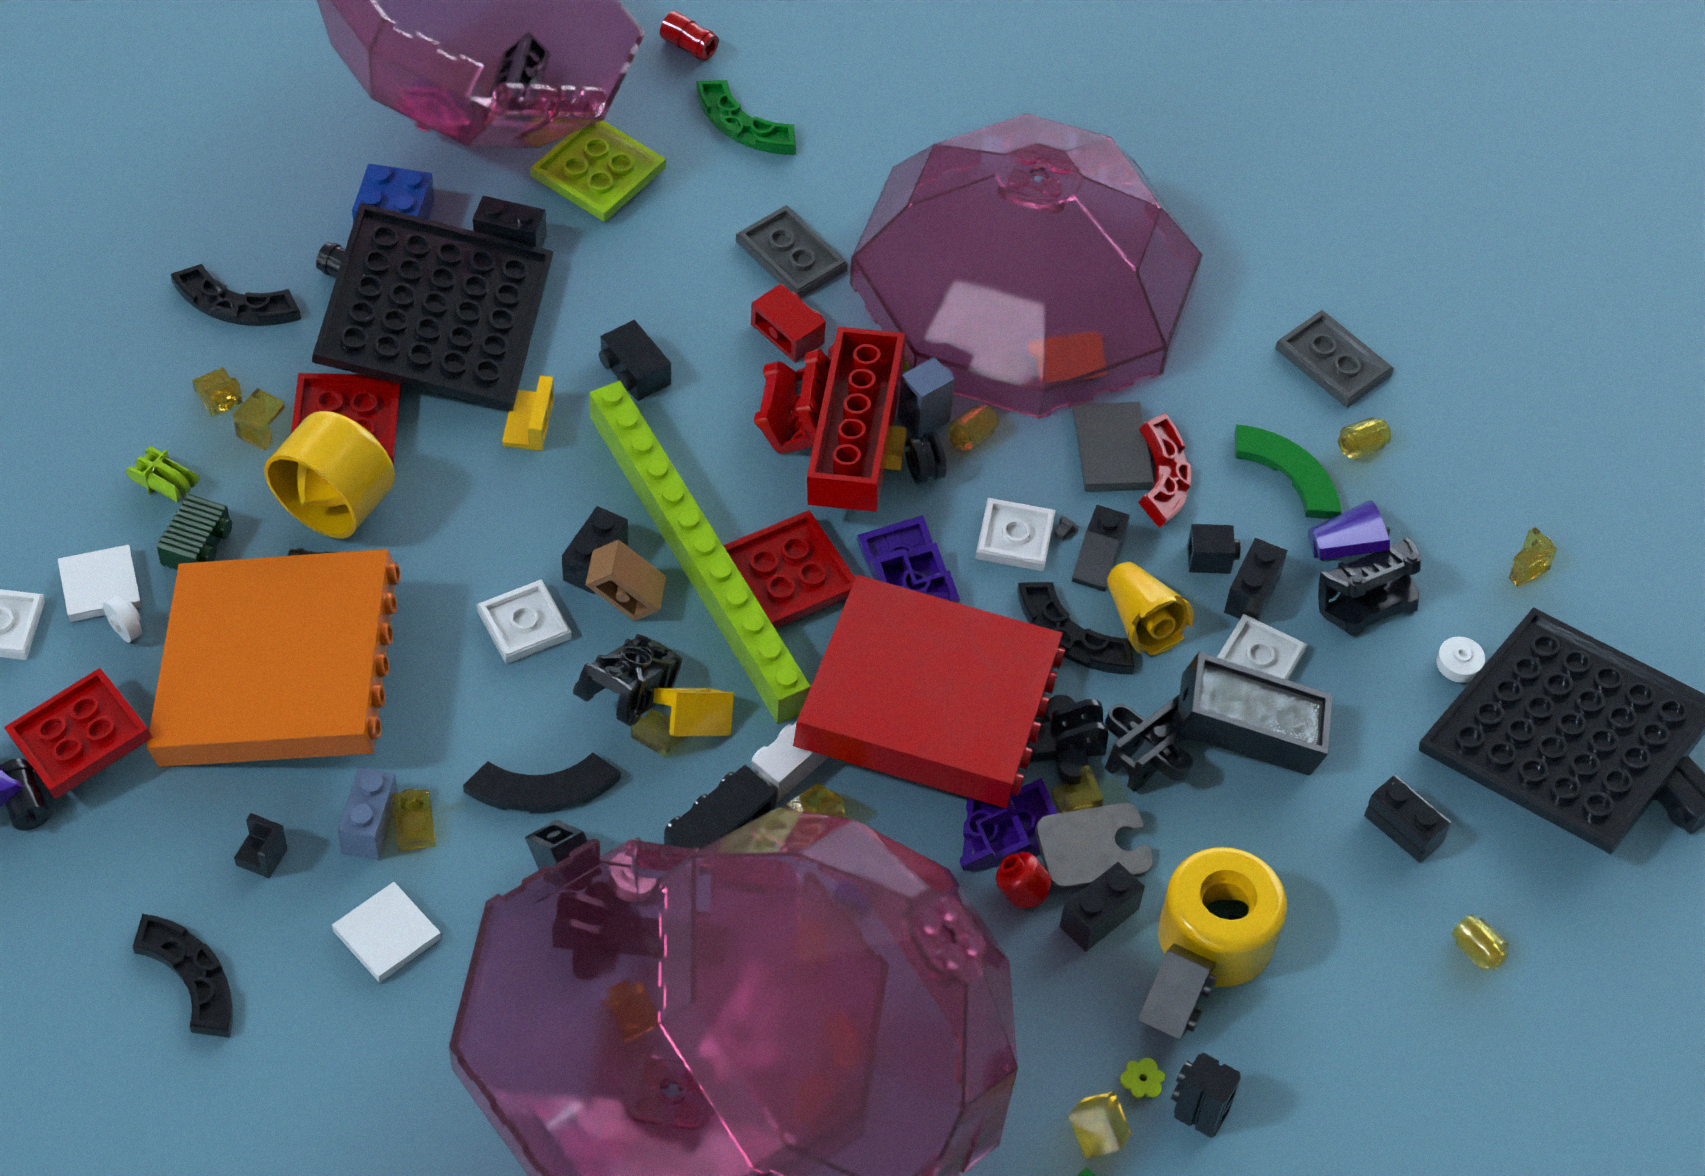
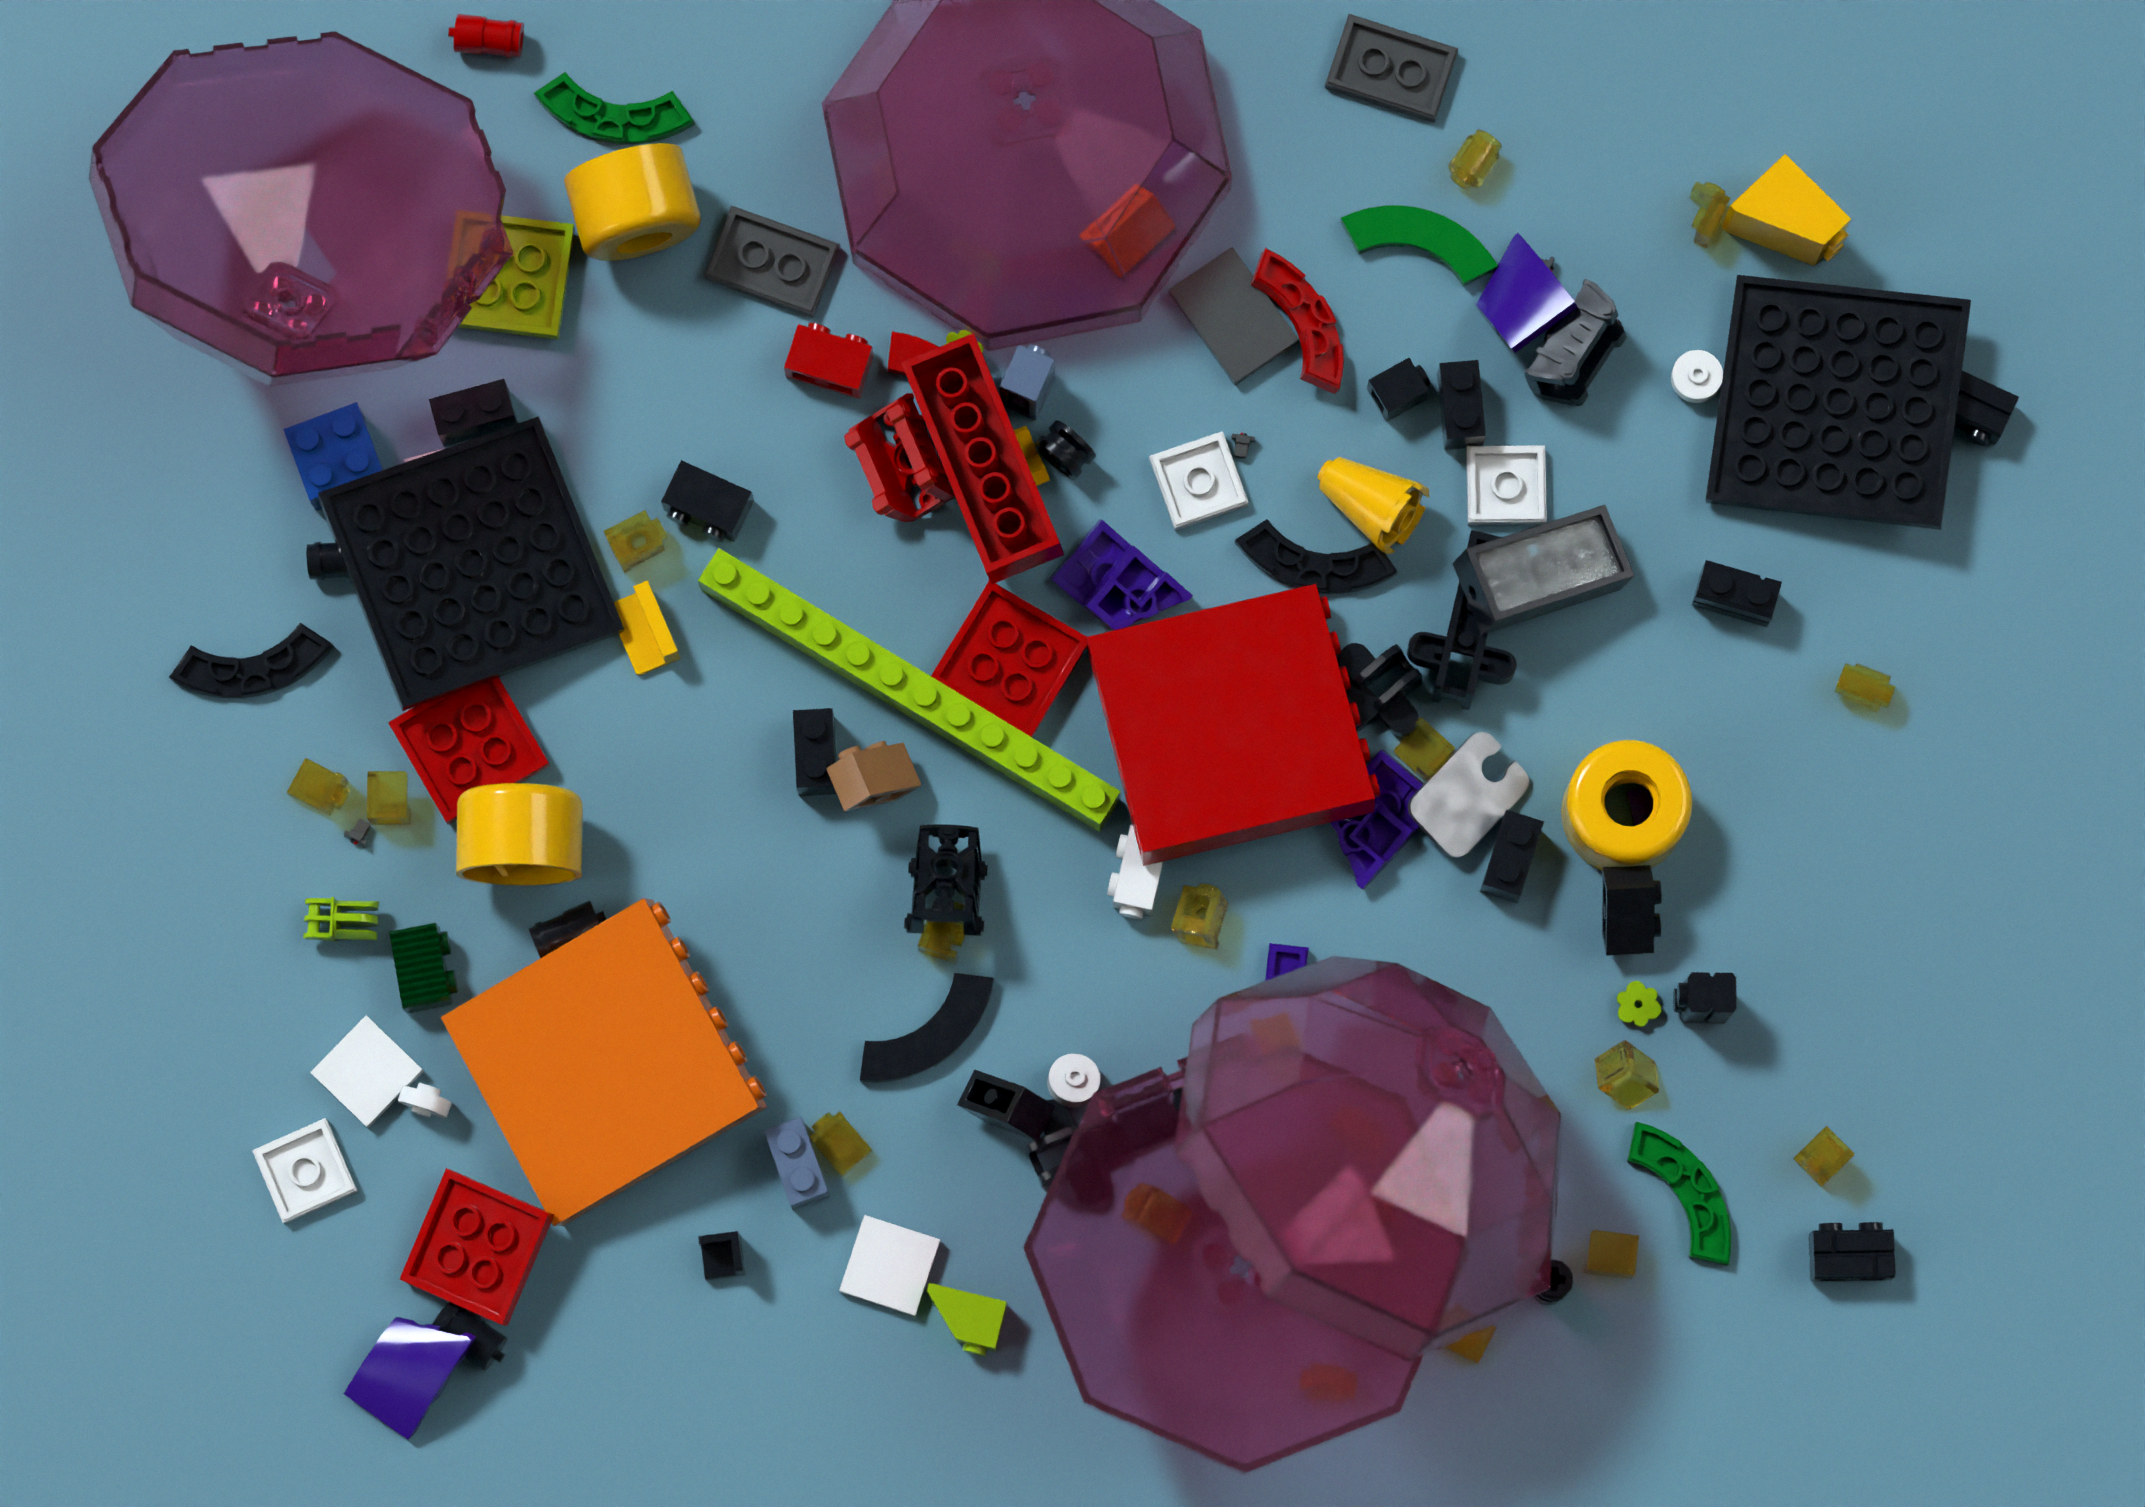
camera: 25 degrees left, 25 degrees up
(197, 969) = (747, 1402): black tile -> none
(222, 434) = (358, 834): none -> dark grey piece
(422, 1001) = (970, 1317): none -> lime slope
(522, 63) = (371, 222): black fence -> none
(524, 621) = (795, 867): white tile -> none
(565, 355) = (622, 534): none -> clear yellow brick
(598, 719) = (941, 937): none -> clear yellow brick
(654, 733) = (1002, 909): clear yellow panel -> none
(697, 710) = (1025, 873): yellow panel -> none
(715, 151) = (633, 202): none -> yellow piece
(733, 804) = (1115, 974): black brick -> none
(972, 427) = (1087, 381): clear yellow brick -> none
(1023, 880) = (1427, 873): red head -> none
(1100, 547) = (1293, 454): black slope -> none
(1597, 582) = (1789, 215): none -> yellow slope

